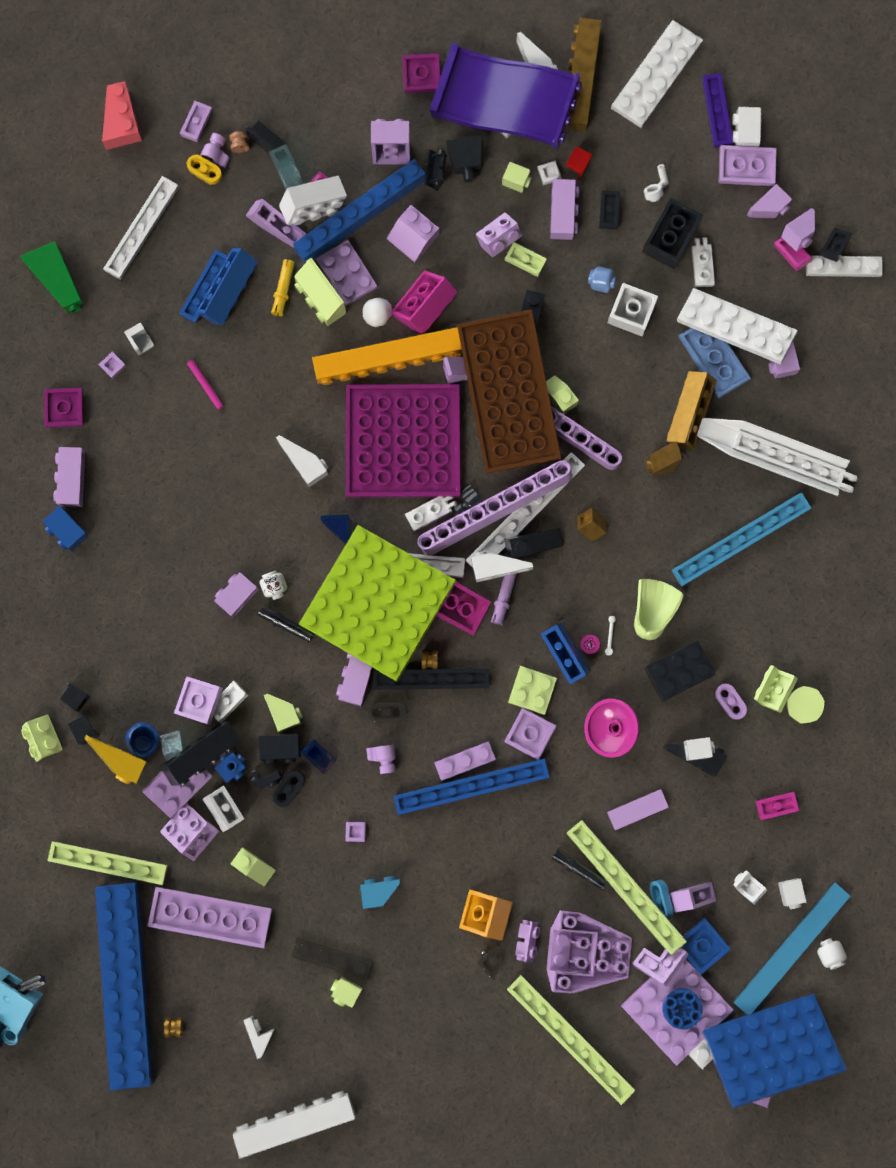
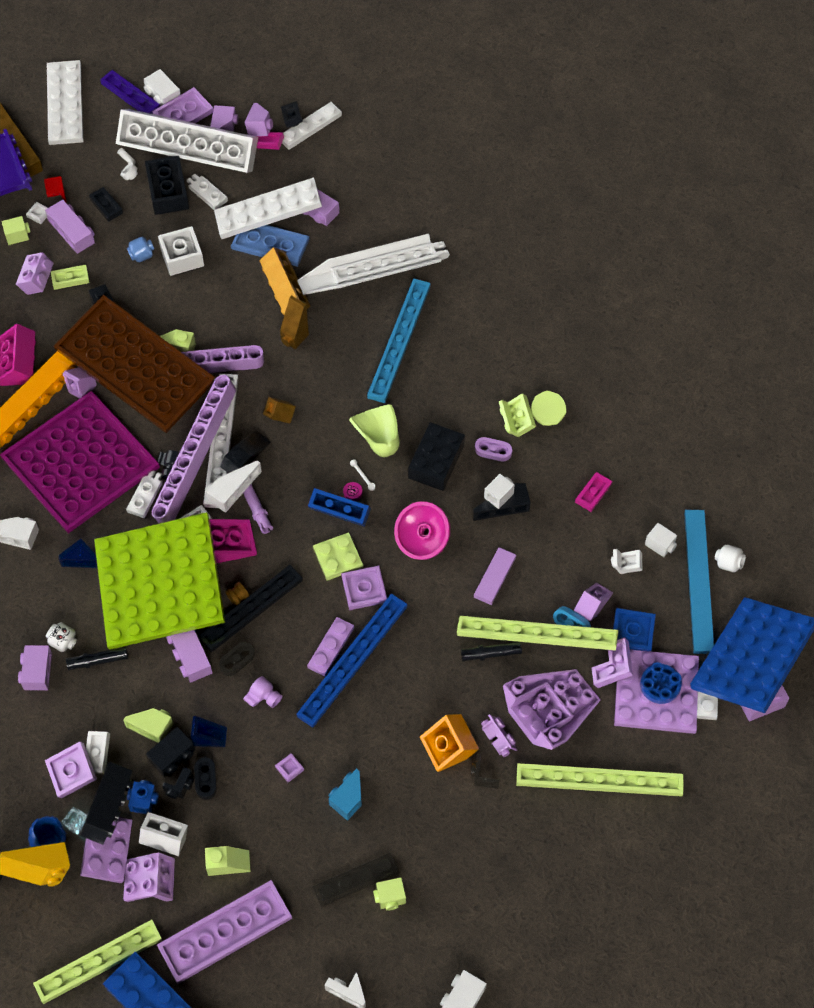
camera: 40 degrees left, 20 degrees down
(723, 202) = (187, 140): none -> white brick

